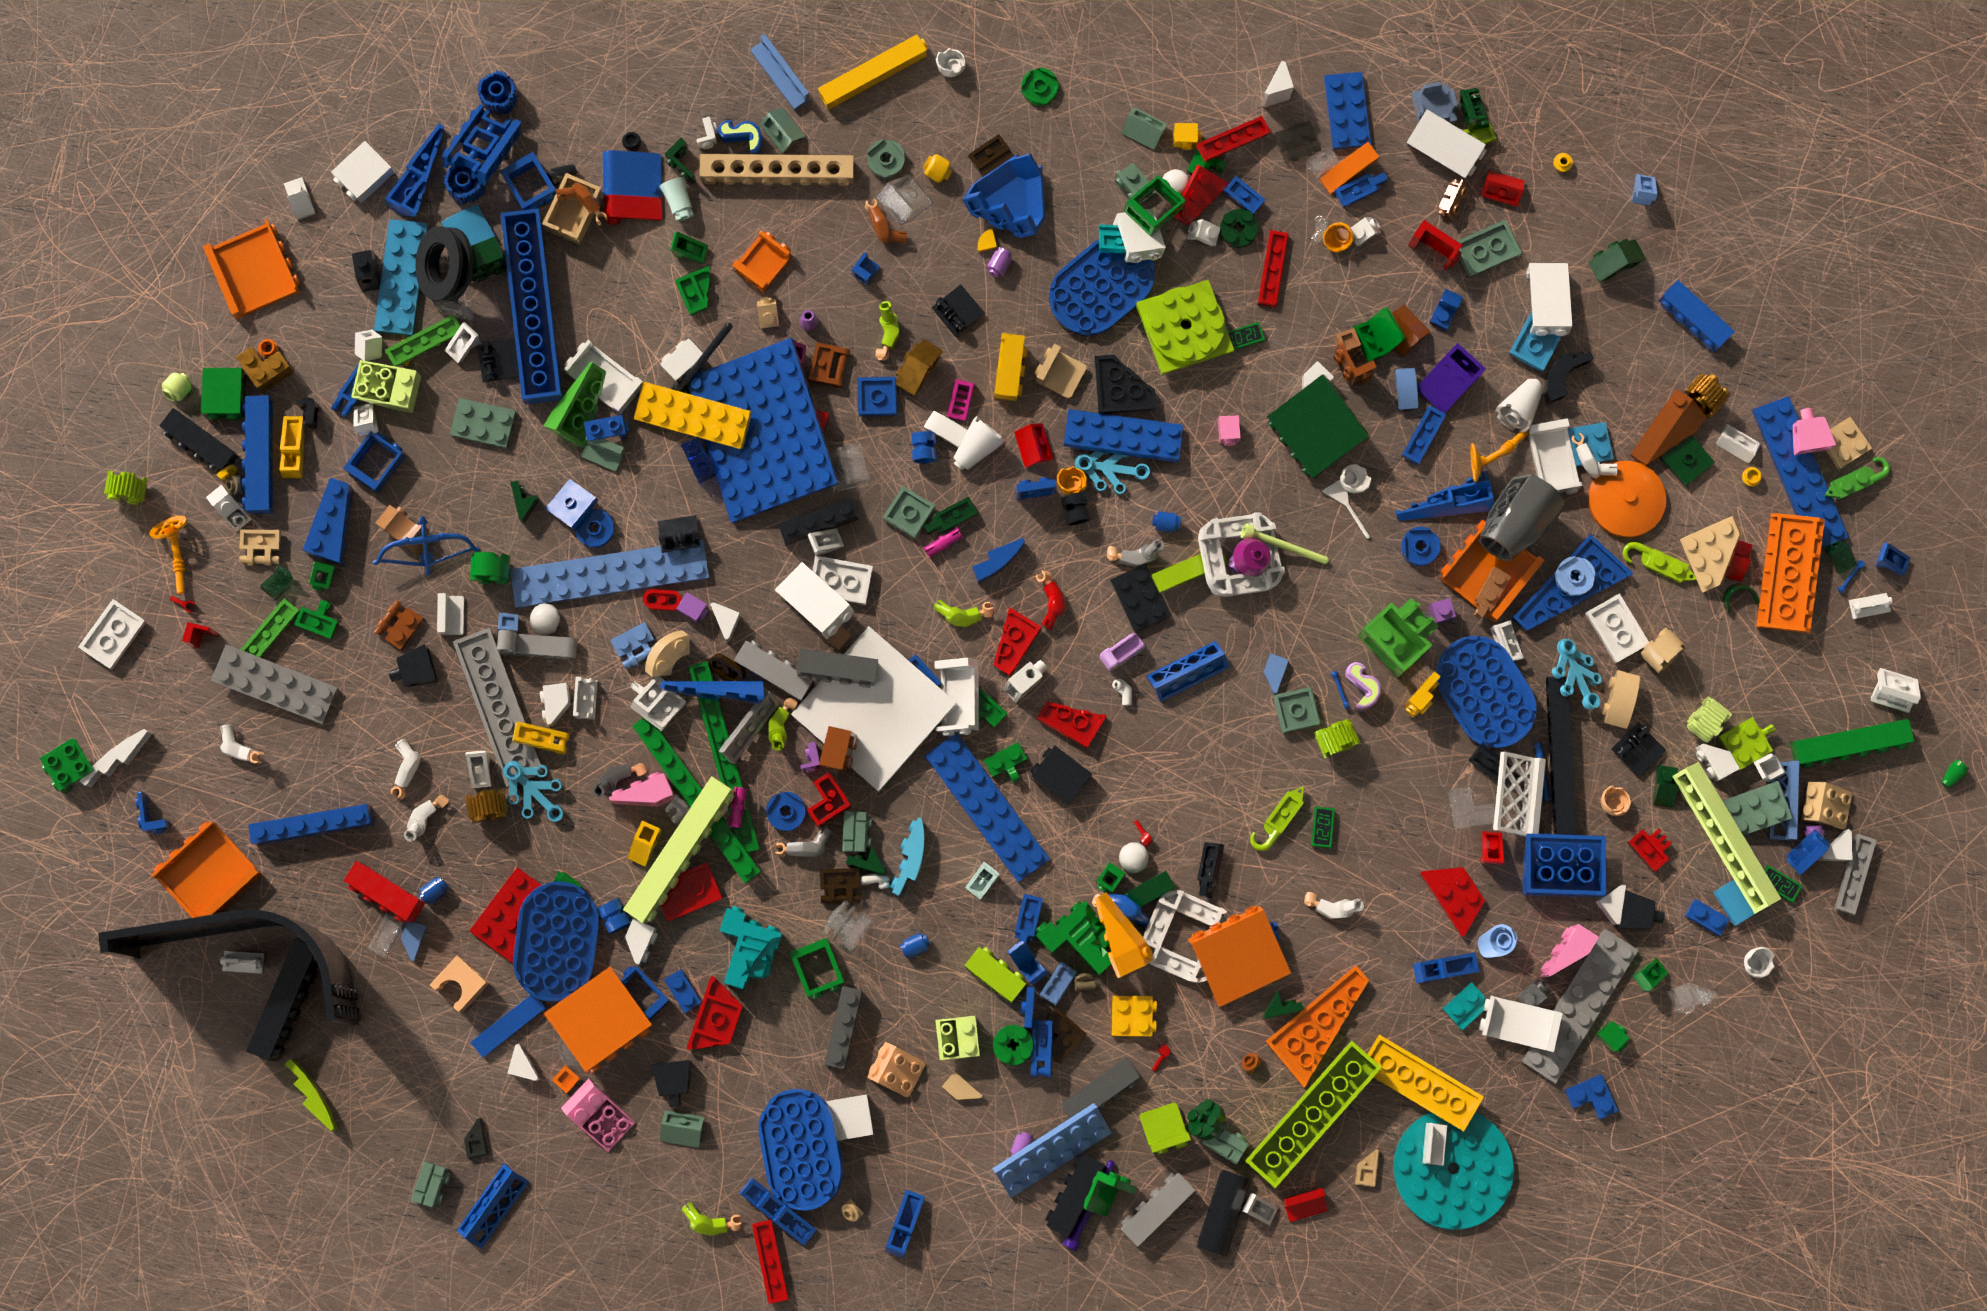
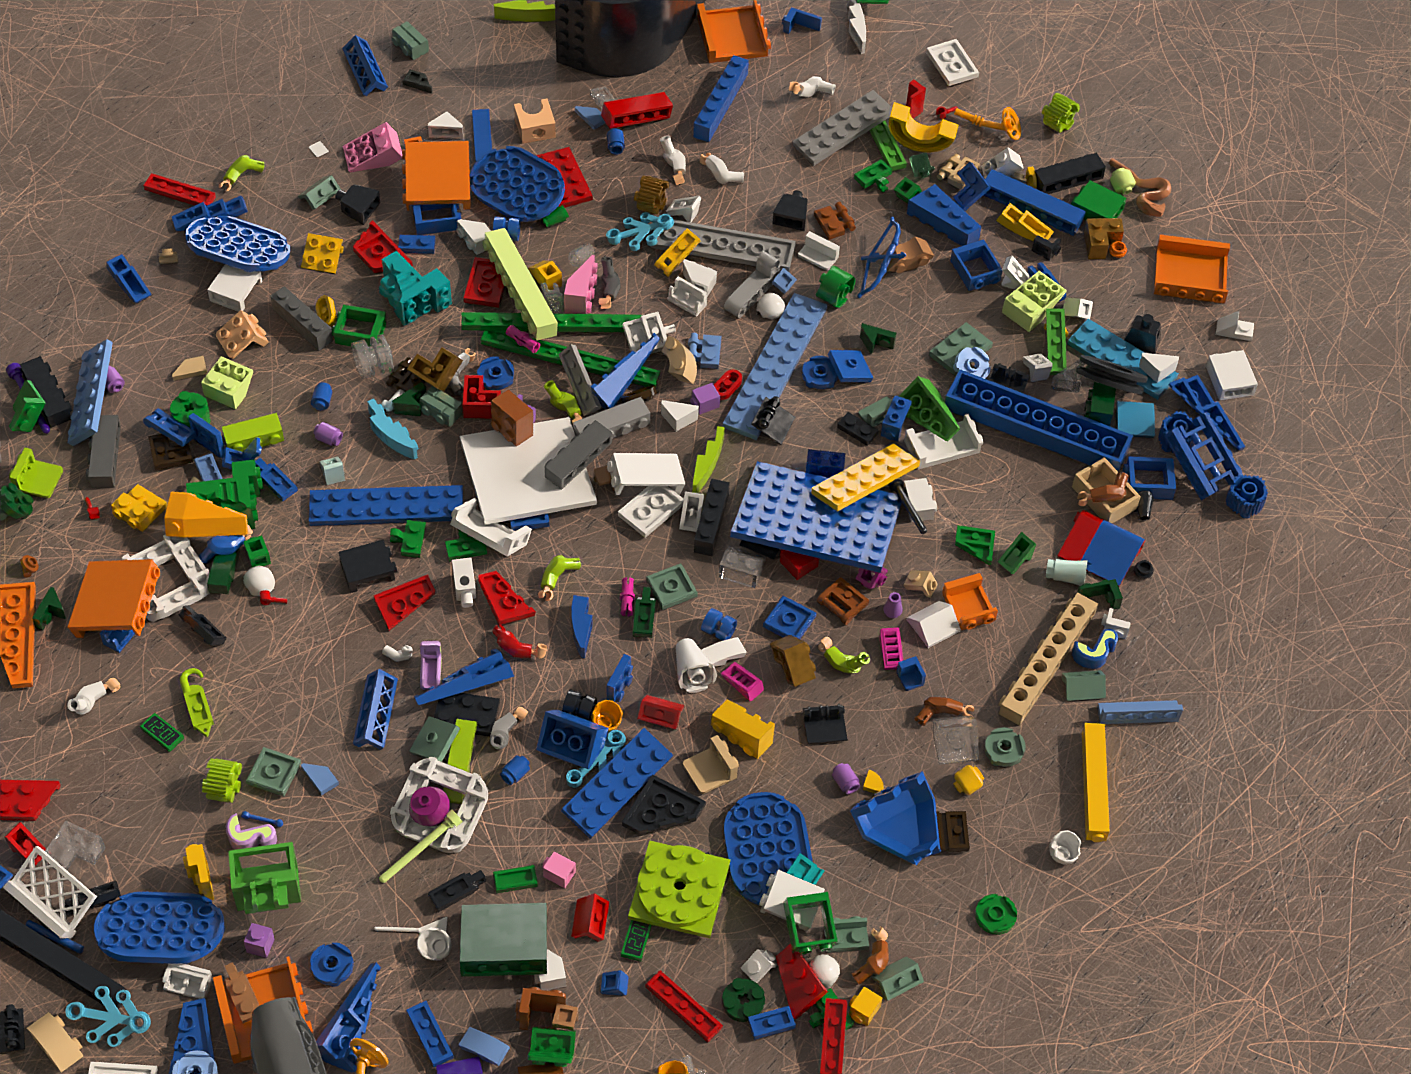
camera: 125 degrees right, 25 degrees down
(158, 350) = (1162, 187): none -> nougat animal
(237, 601) = (919, 136): none -> yellow brick
(279, 513) = (975, 186): none -> blue plate
(401, 233) = (1158, 365): none -> white slope
(501, 407) = (974, 355): none -> light blue plate
(598, 827) = (580, 254): none -> clear brick
(626, 1173) = (318, 149): none -> white sticker
(635, 460) = (857, 428): none -> black plate
(755, 1068) = (322, 253): none -> yellow hinge
(768, 562) = (706, 463): none -> lime slope
(800, 281) = (935, 623): none -> white slope
(819, 1012) = (326, 310): none -> yellow plate
(833, 853) = (437, 372): none -> pearl gold brick
(849, 308) = (890, 636): none -> dark pink slope
(950, 909) = (328, 434): none -> medium lavender brick
(1099, 607) = (481, 673): none -> blue wedge
(1111, 493) = (571, 738): none -> blue slope
(1141, 147) = (877, 961): none -> dark orange arm
(1187, 599) = (434, 739): none -> sand green plate
(1251, 381) = (590, 917): none -> red panel
(1256, 460) = (515, 879): none -> green tile
(1290, 330) = (614, 983): none -> blue slope
(1298, 496) = (456, 889): none -> black hinge

